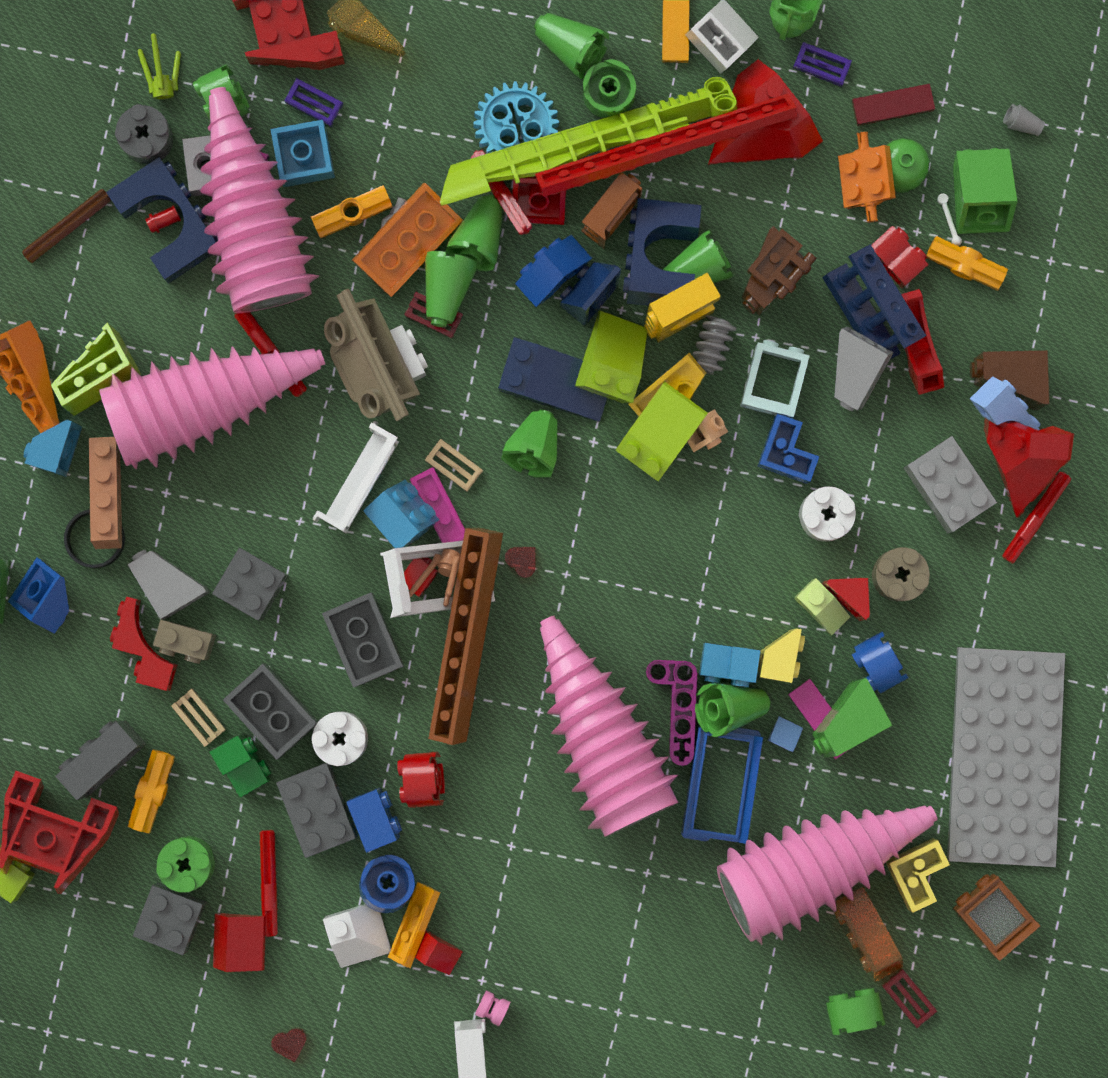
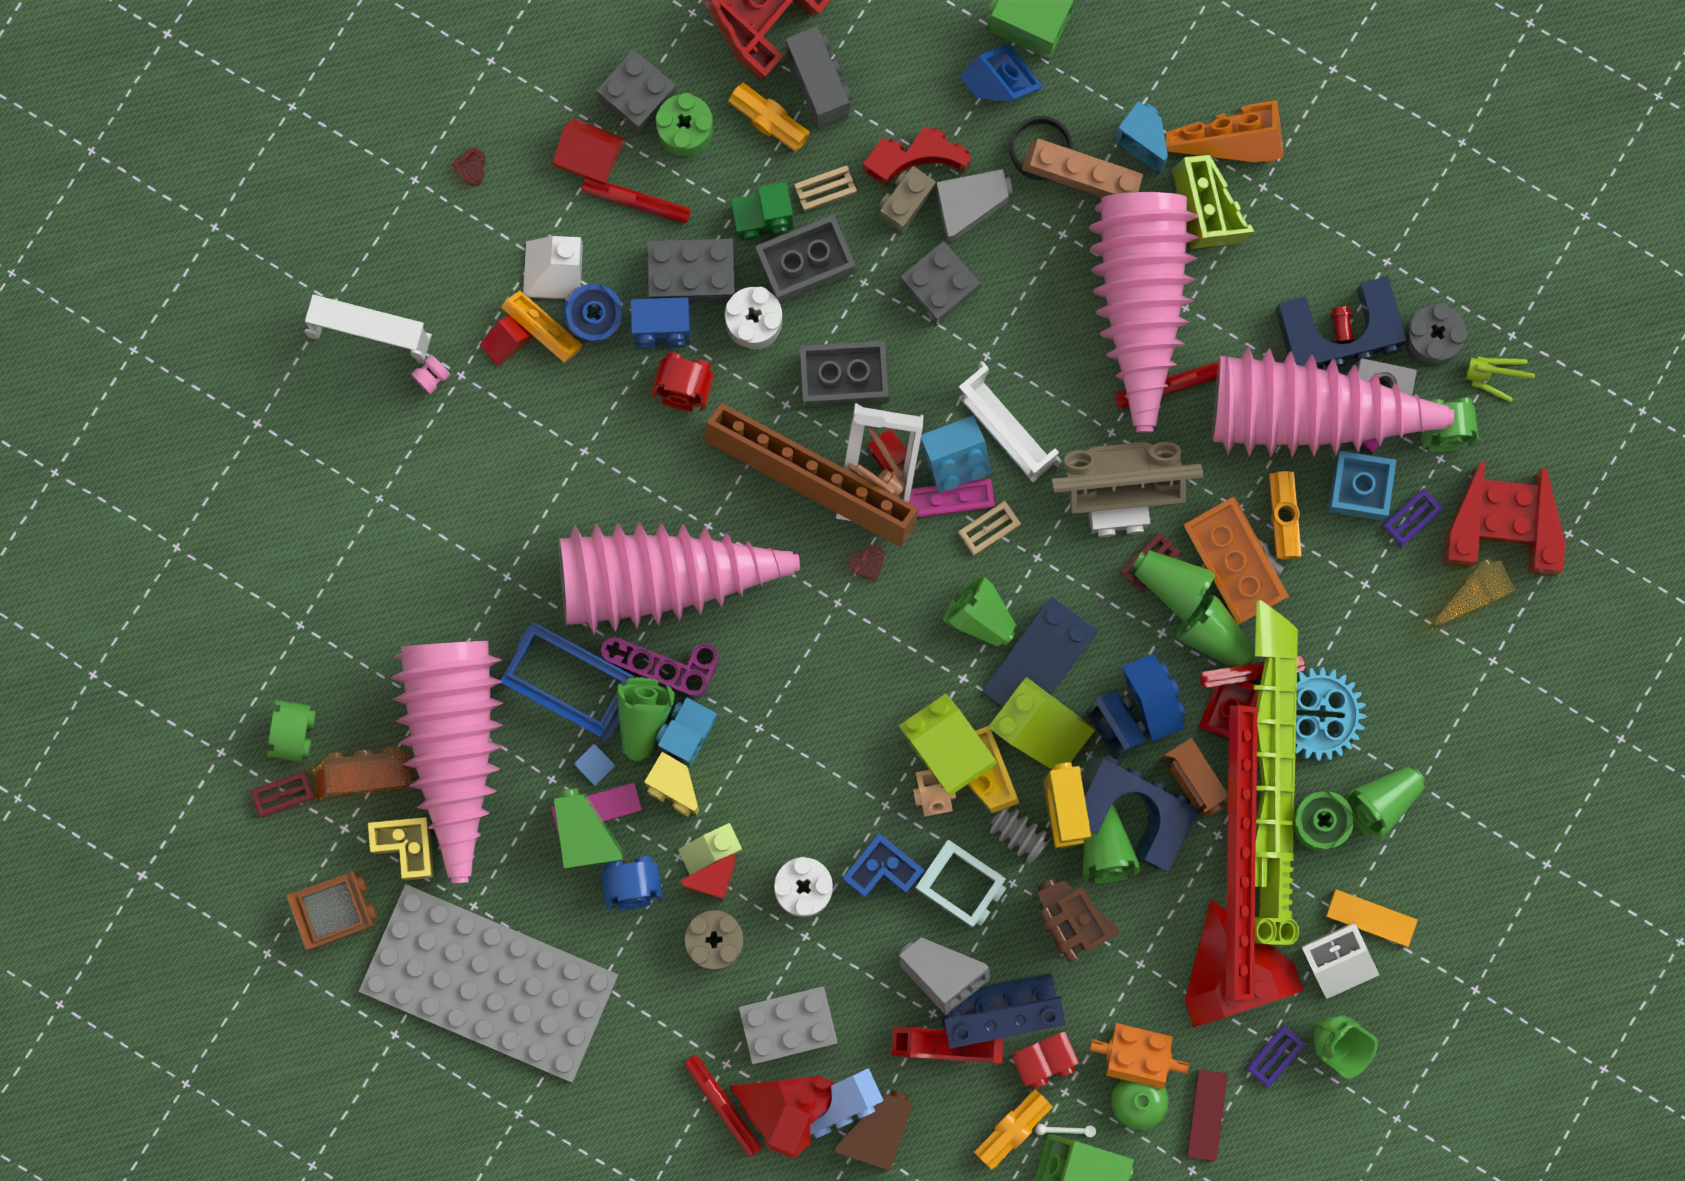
camera: 105 degrees right, 5 degrees down
(66, 225) = (1368, 226): reddish brown axle -> none

